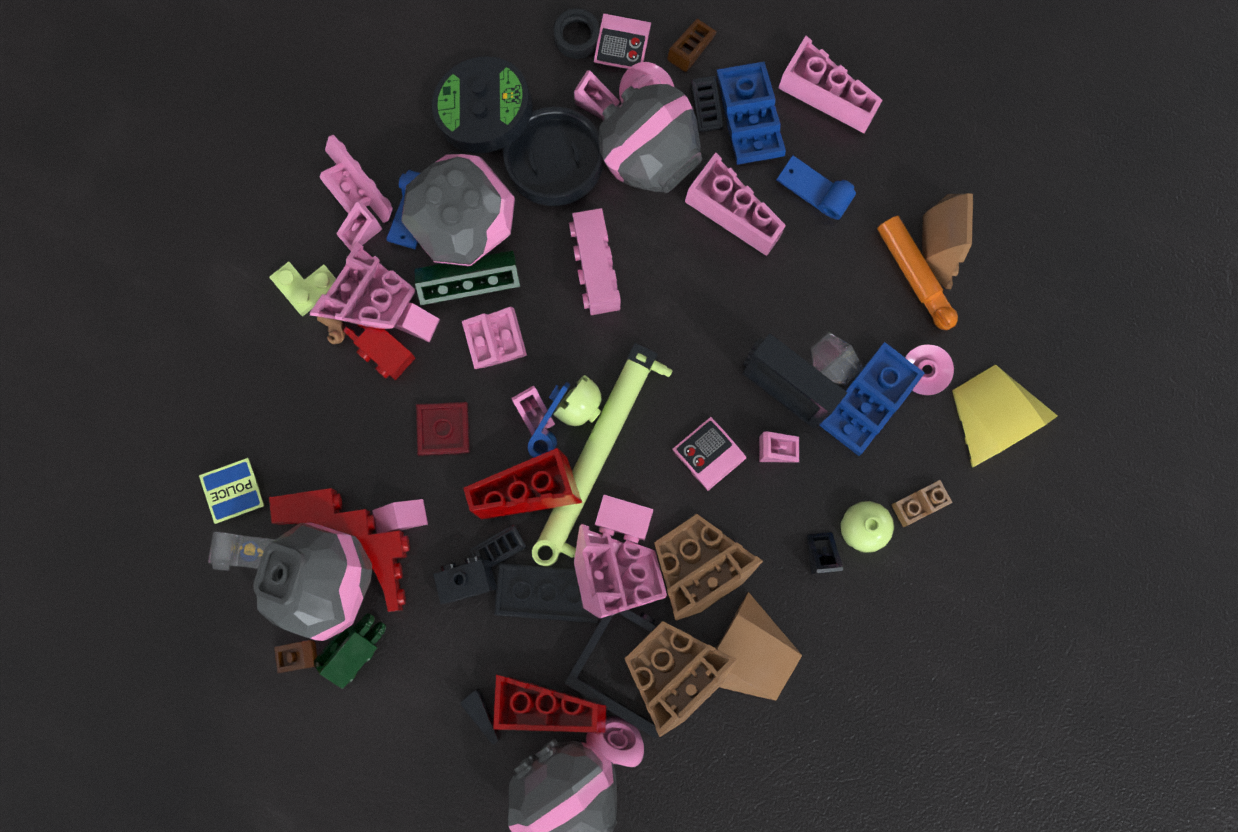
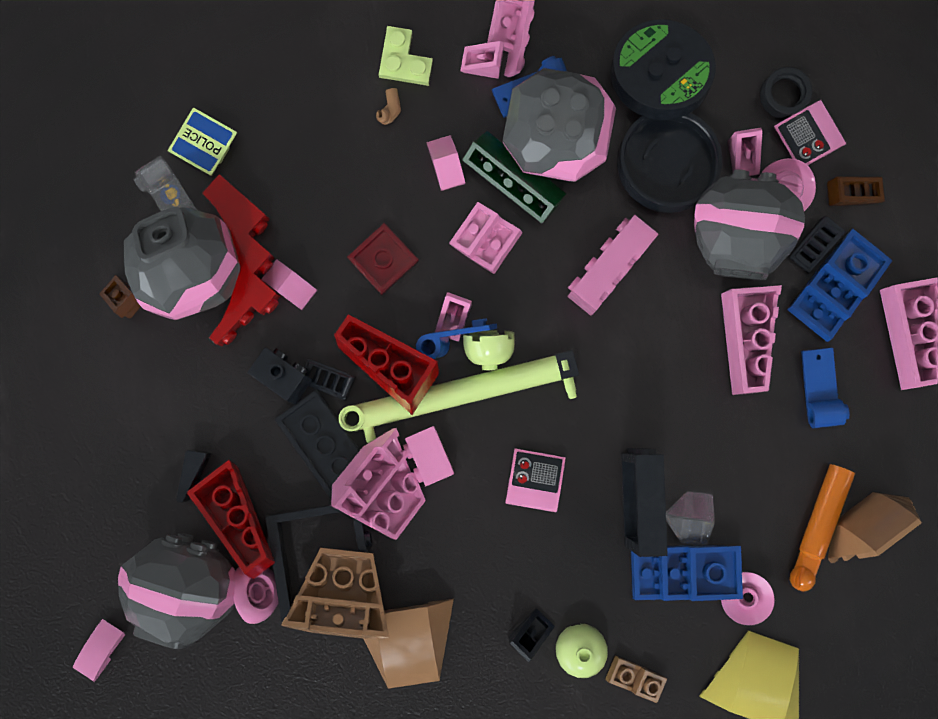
camera: 55 degrees right, 5 degrees up
(349, 651) = (156, 334): dark green hinge -> none
(365, 293) = (434, 110): bright pink wedge -> none
(383, 349) = (404, 158): red hinge -> none
(701, 565) = (442, 546): medium nougat wedge -> none
(778, 447) = (585, 531): bright pink slope -> none

